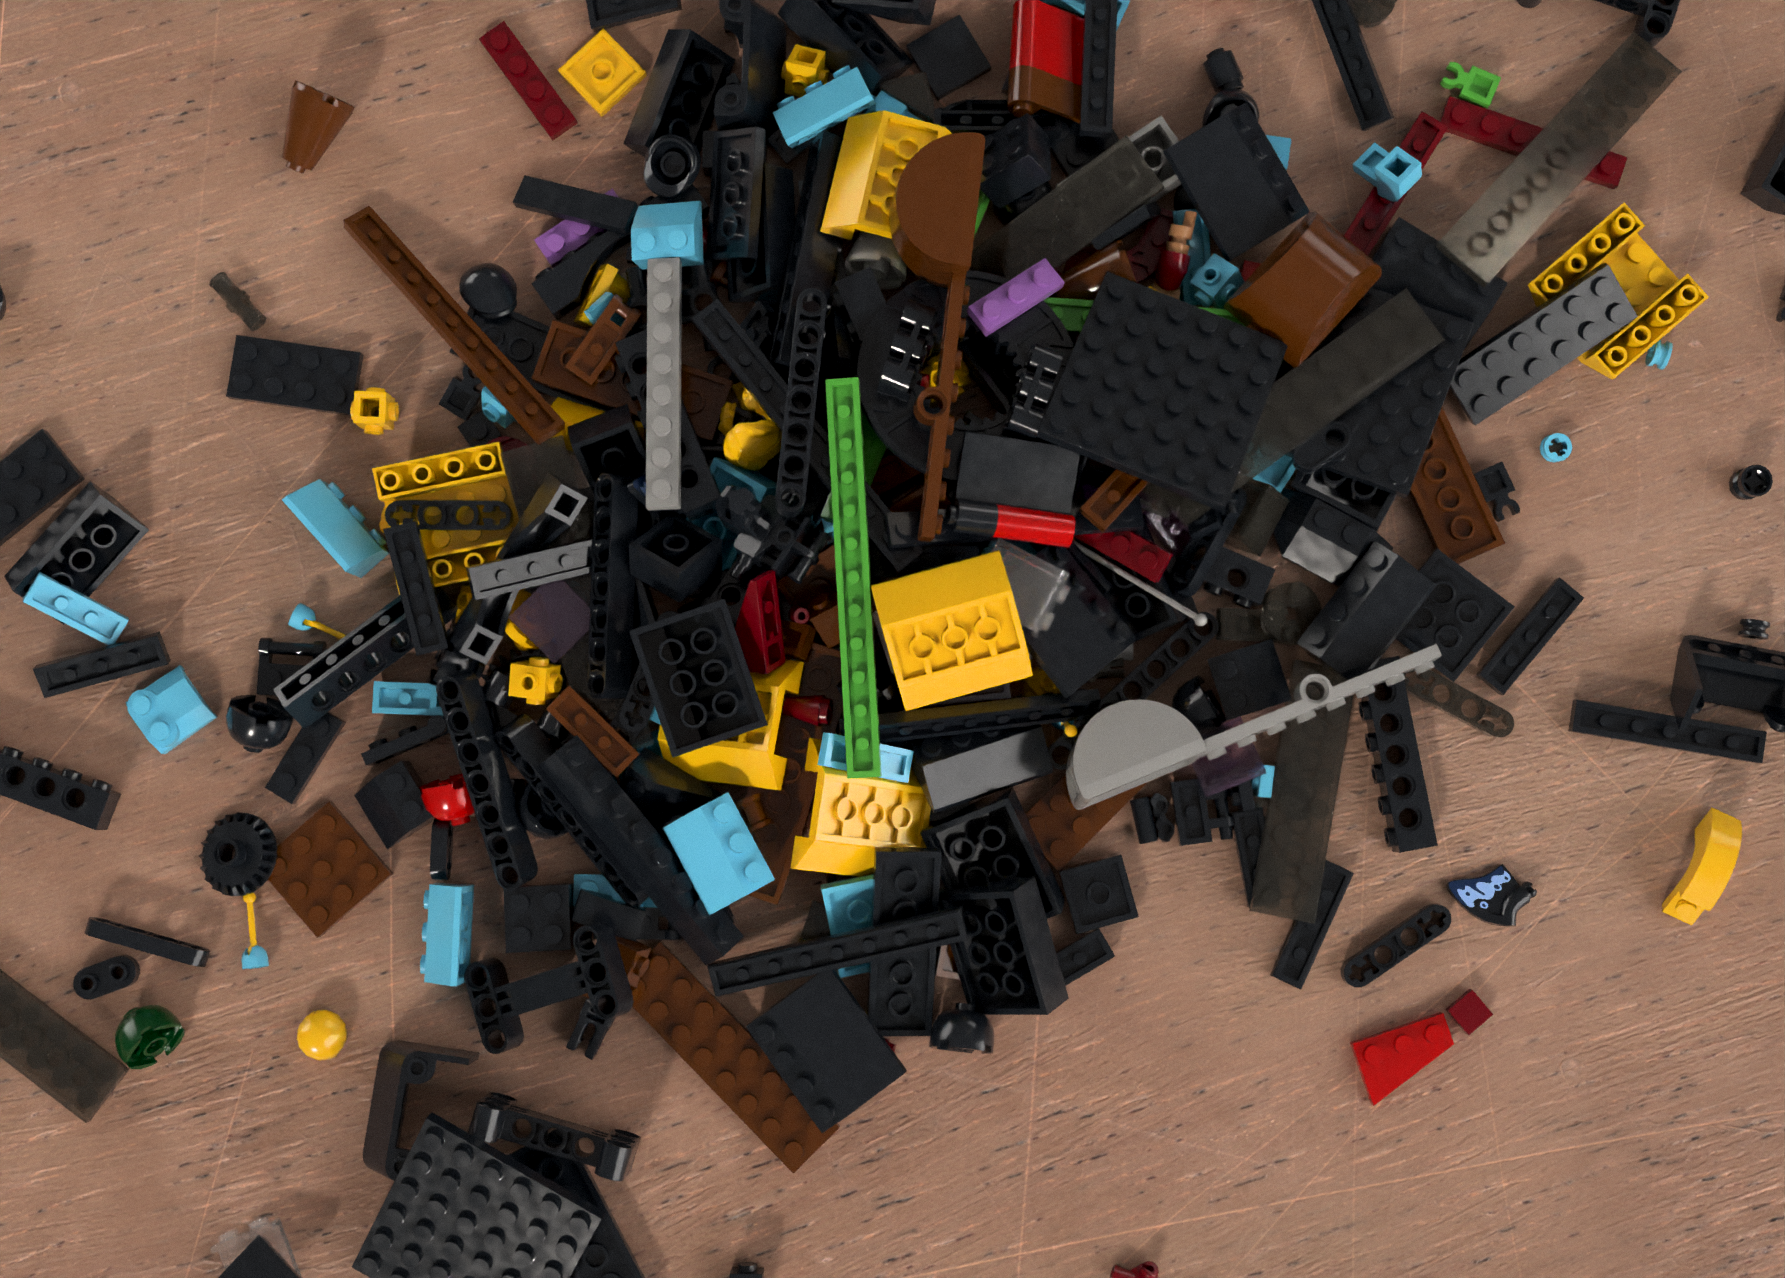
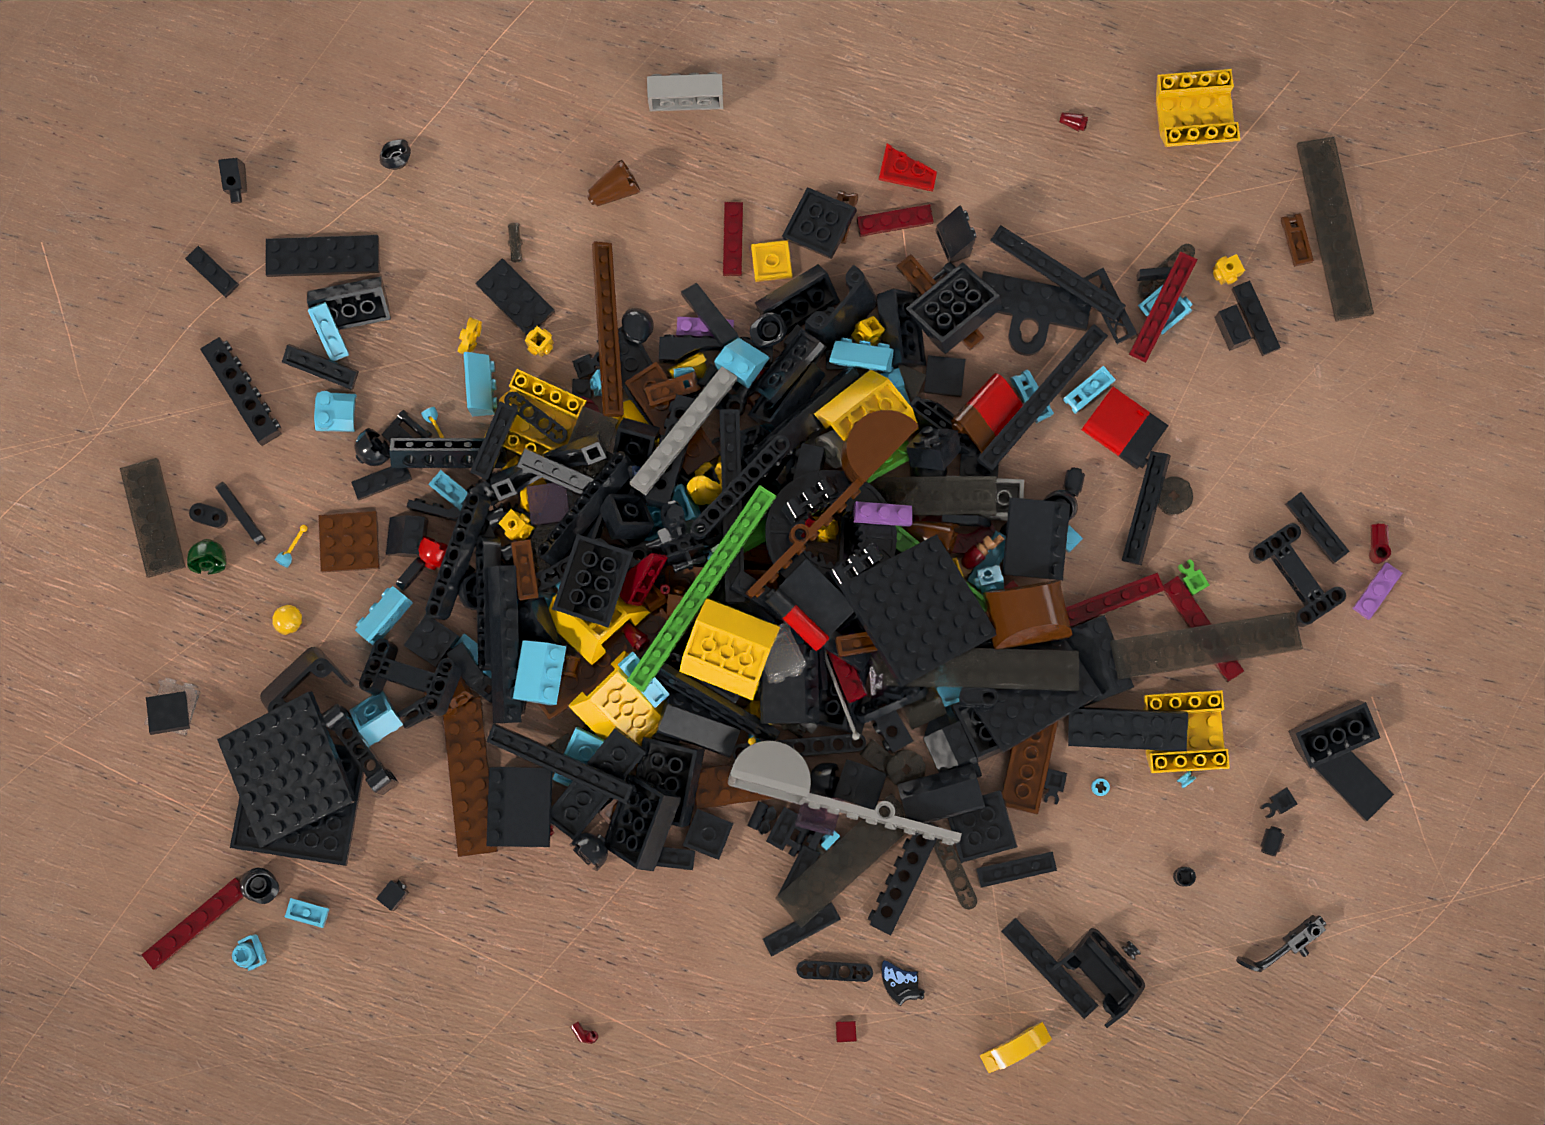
camera: 35 degrees right, 5 degrees down
(253, 857) = (318, 512): black gear -> none
(273, 472) = (469, 336): none -> yellow plate
(542, 1075) = (375, 718): none -> medium azure slope
(1389, 172) = (1115, 588): medium azure brick -> none
(1399, 1053) = (796, 1025): red wing -> none

